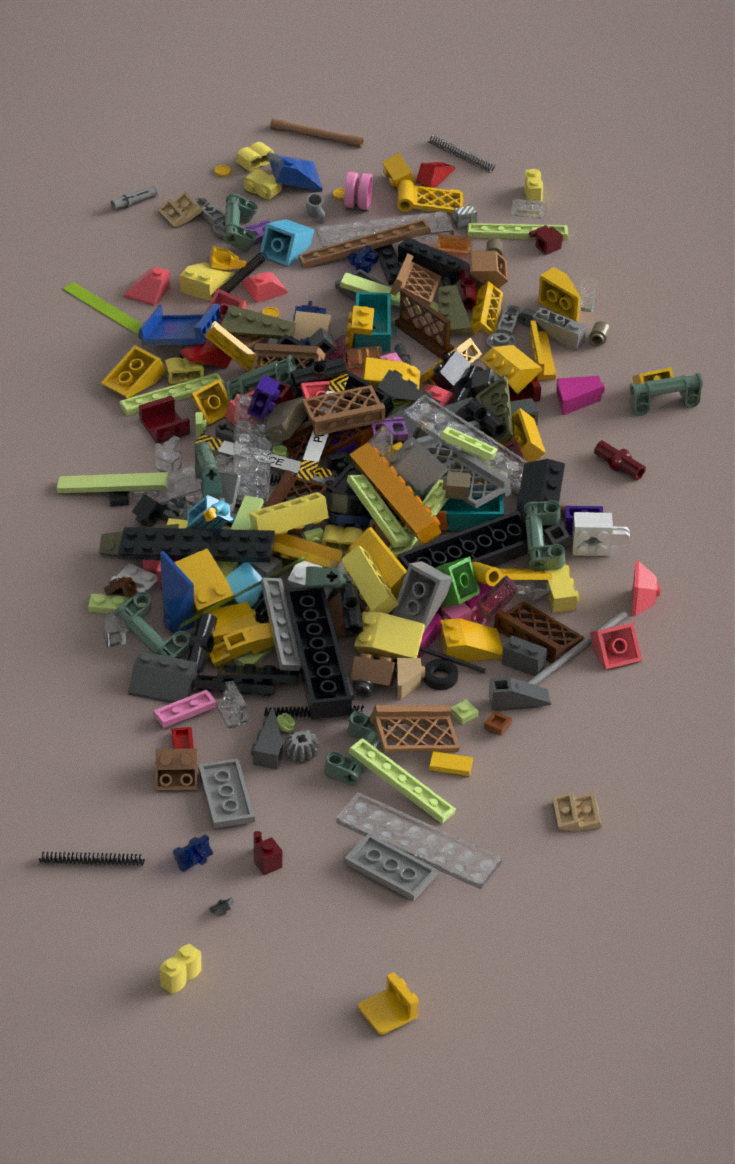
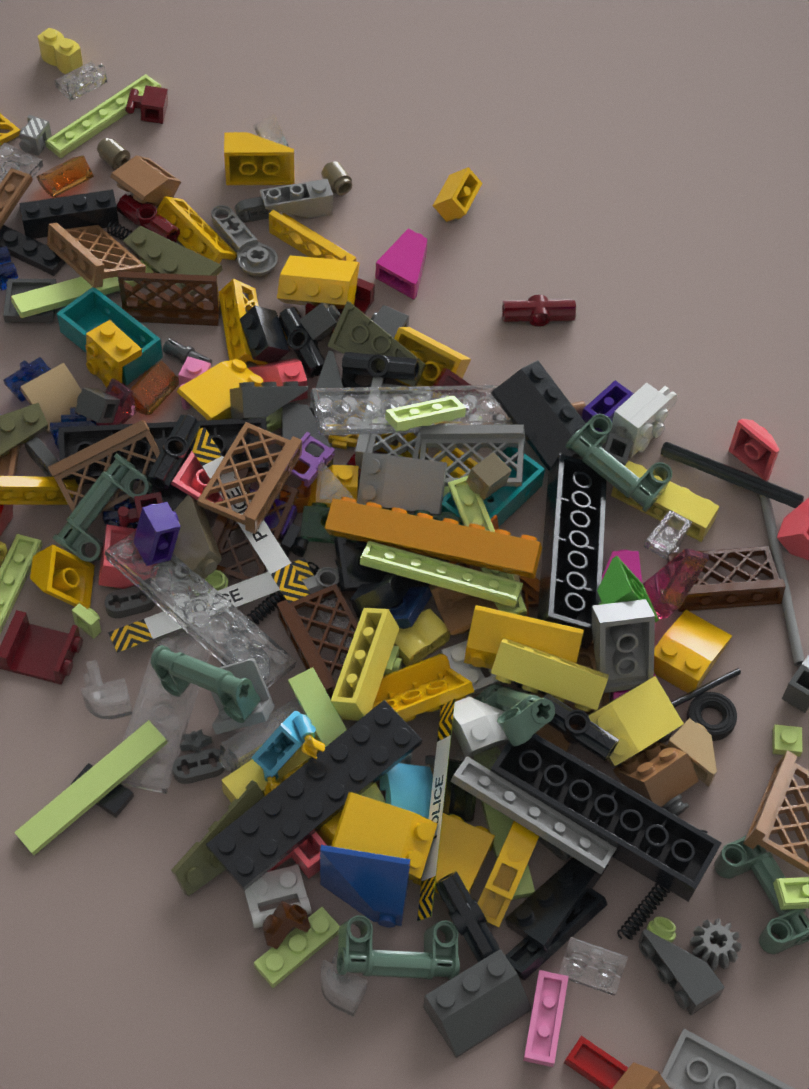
camera: 50 degrees left, 15 degrees up
(148, 511) = (180, 789): black brick -> none
(491, 575) = (640, 556): yellow piece -> none
(524, 656) = (759, 621): dark grey brick -> none
(609, 591) = (732, 475): none -> black axle
(687, 386) = (500, 183): sand green piece -> none

